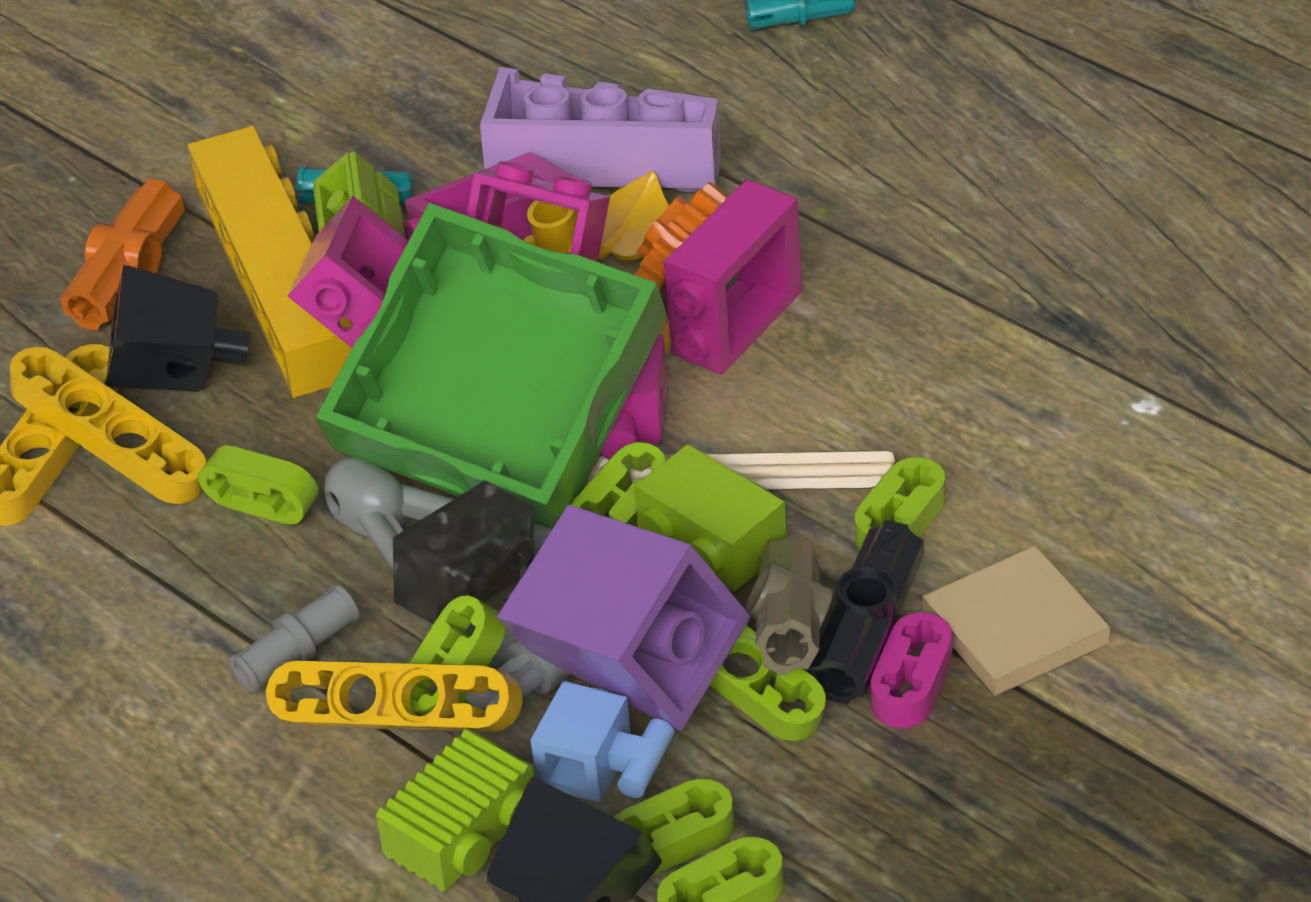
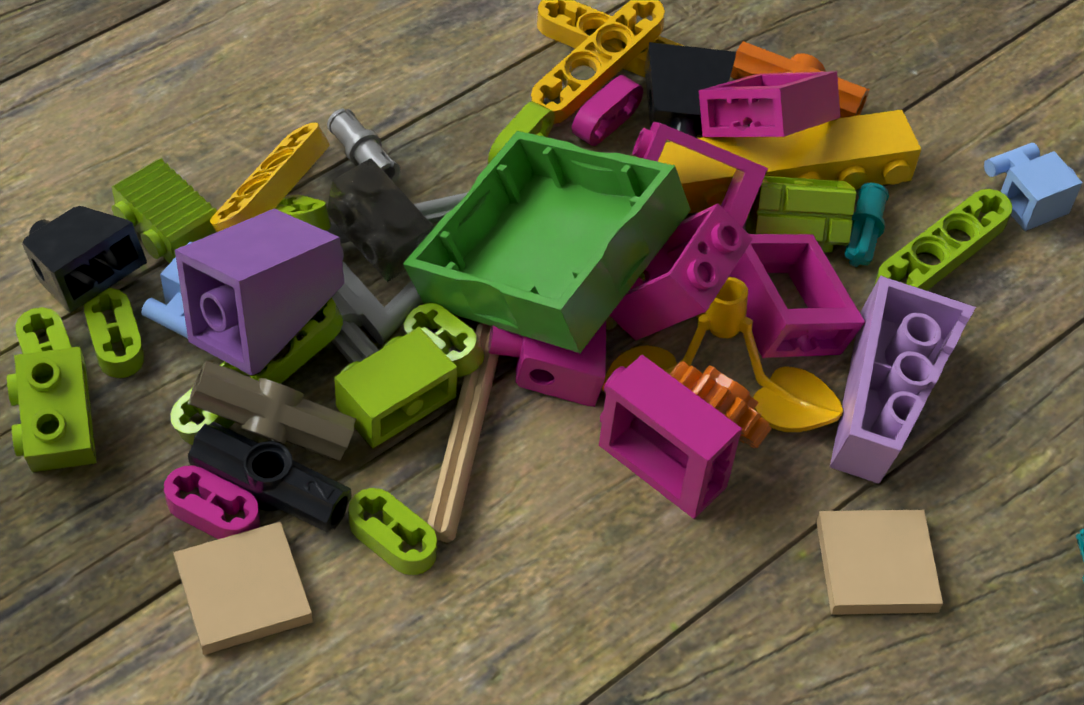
camera: 90 degrees right, 10 degrees up
(195, 411) = (607, 110): none -> dark pink beam
(232, 263) = (770, 103): none -> dark pink window
(279, 57) = (1035, 184): none -> light blue brick
(426, 153) = (941, 244): none -> lime beam
(823, 150) = (878, 562): none -> tan tile
(834, 819) = (53, 409): none -> lime brick

